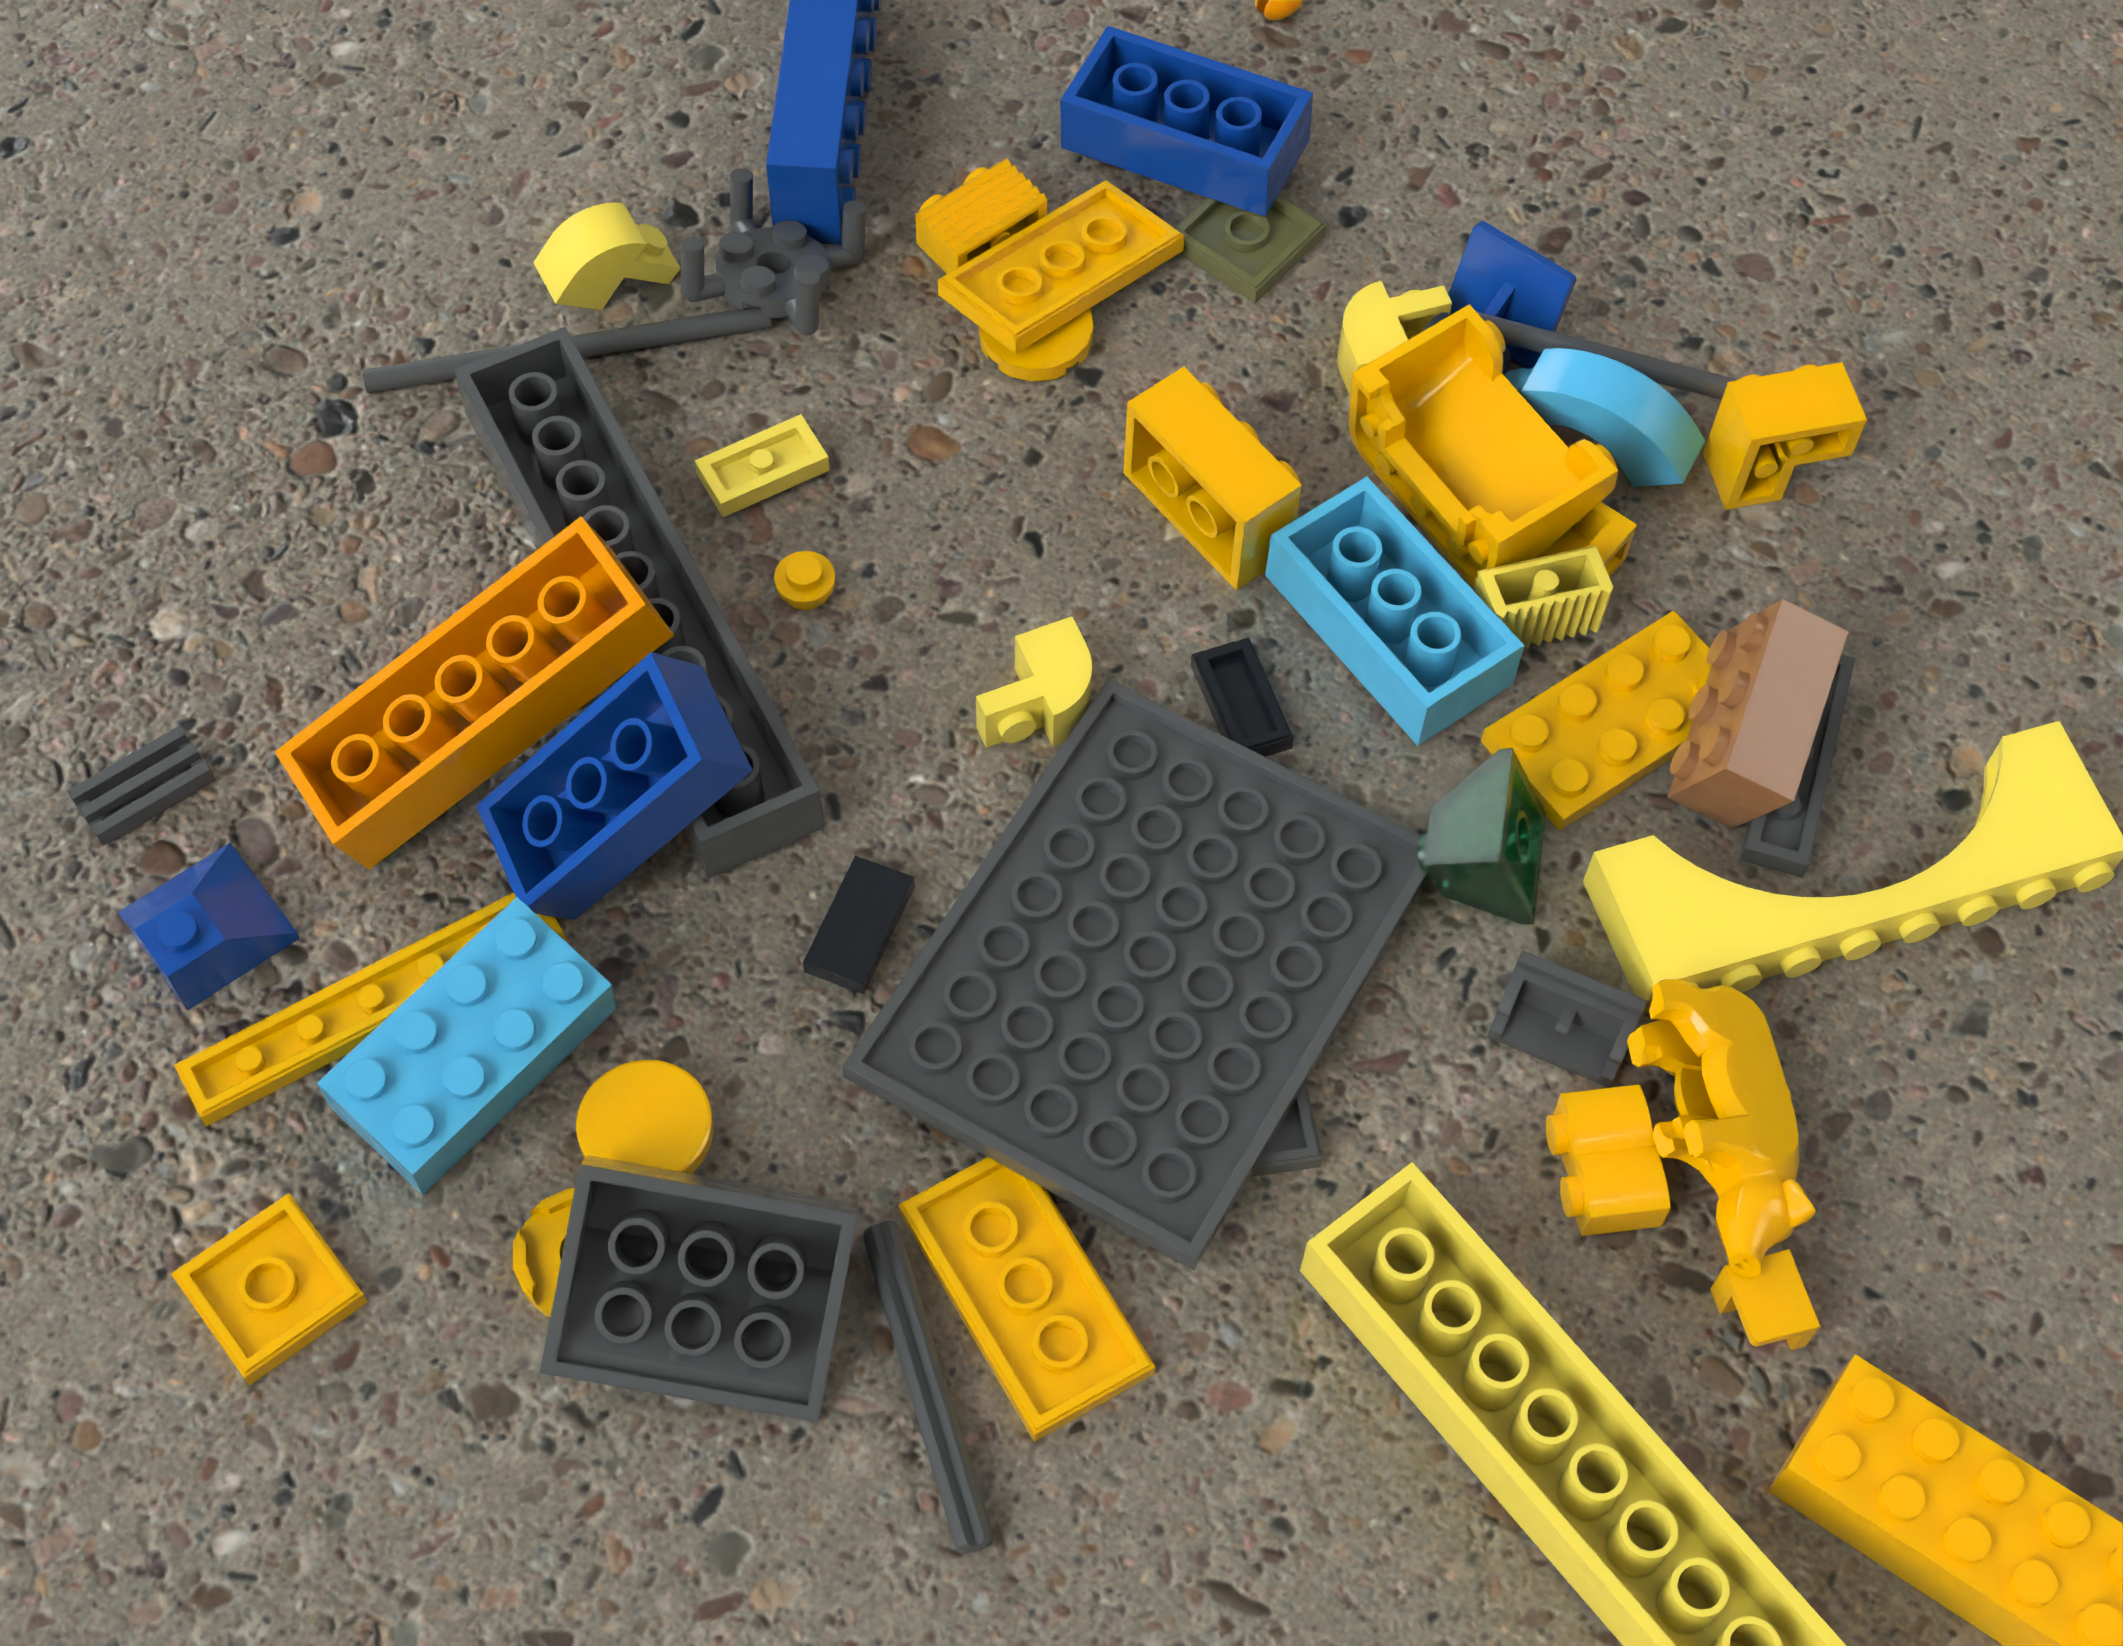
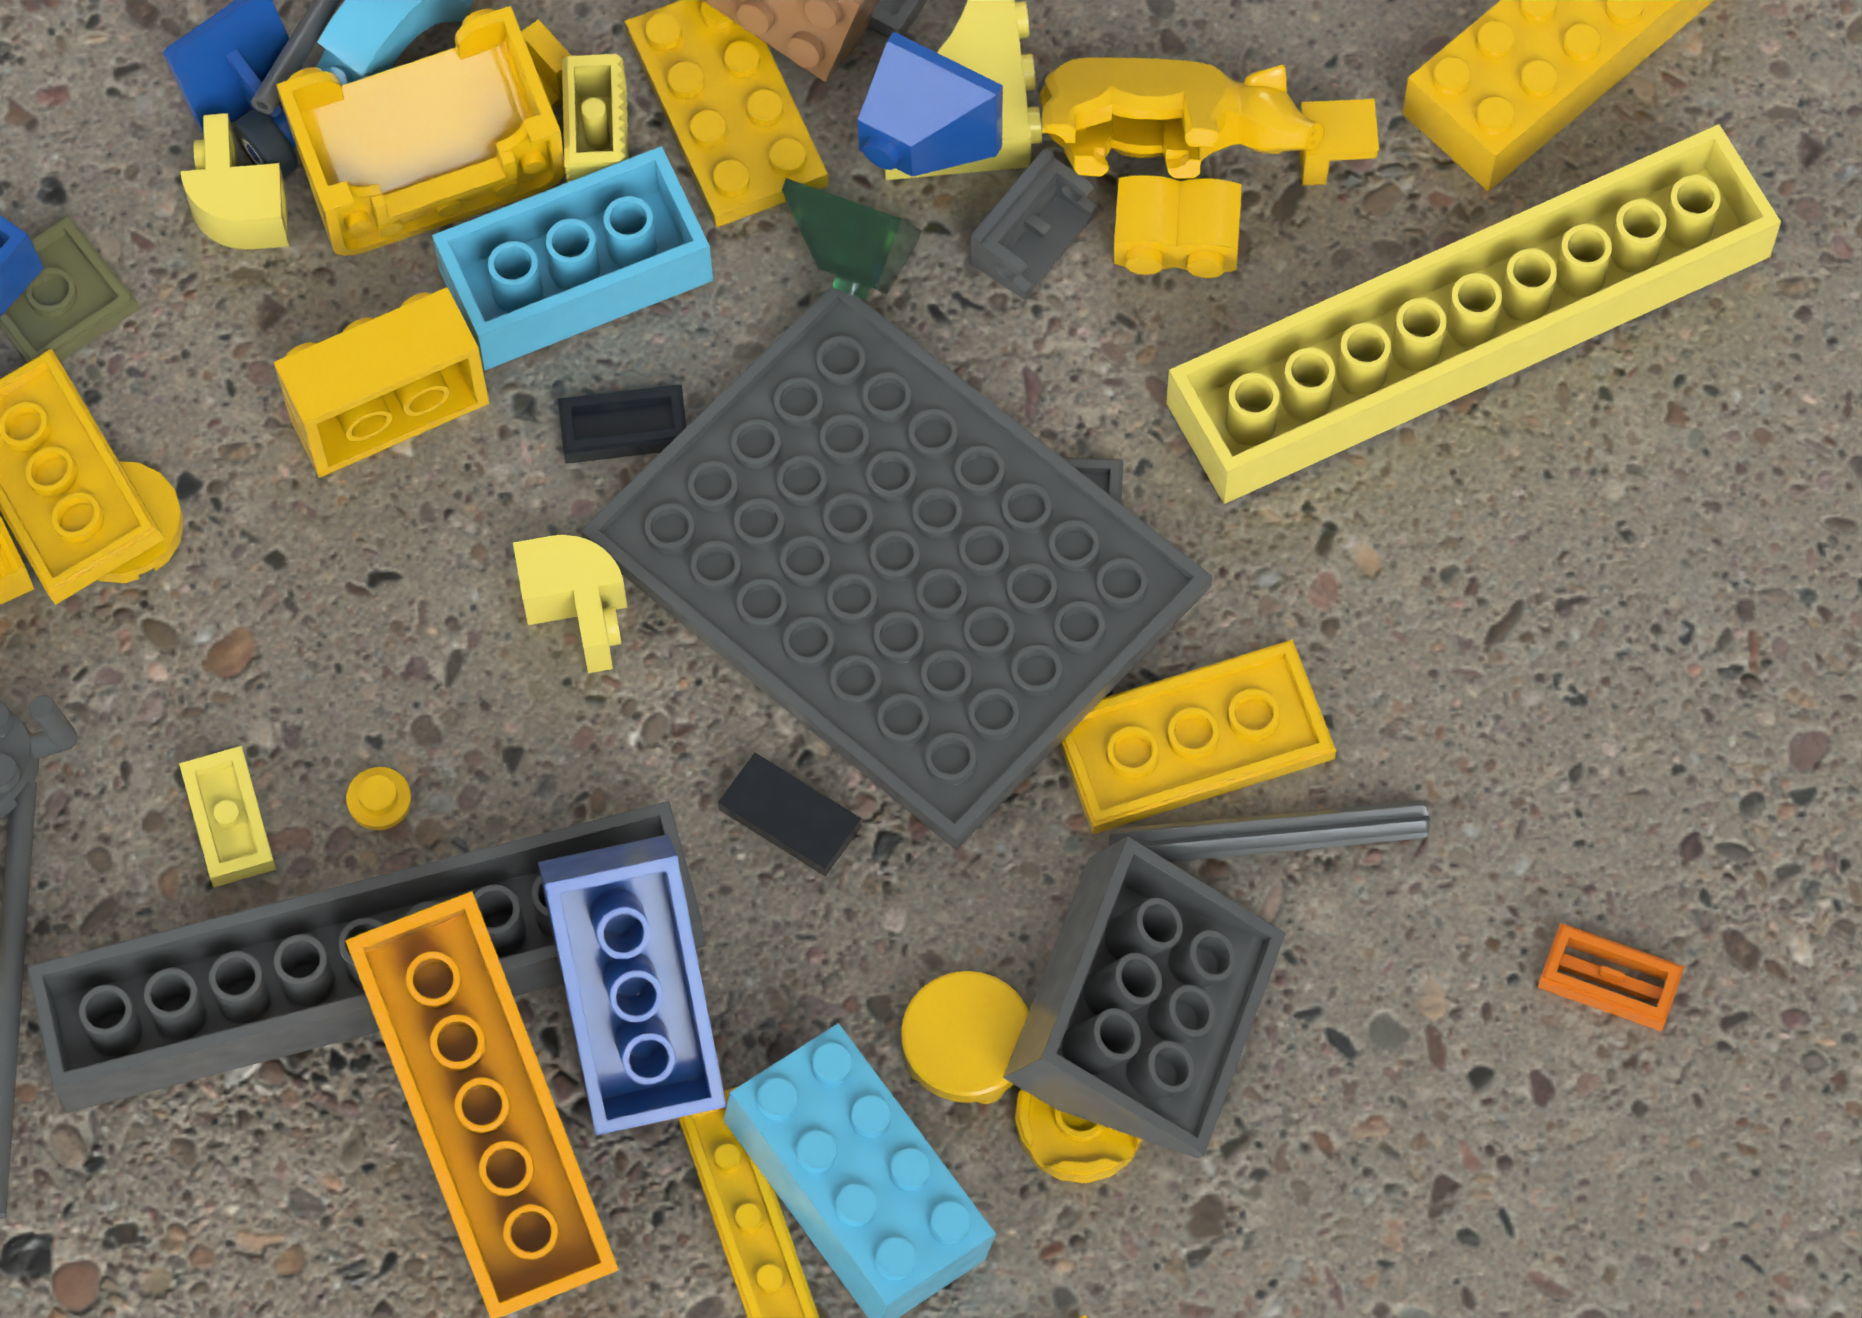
camera: 75 degrees left, 5 degrees up
(1626, 859) = (928, 112): none -> slope

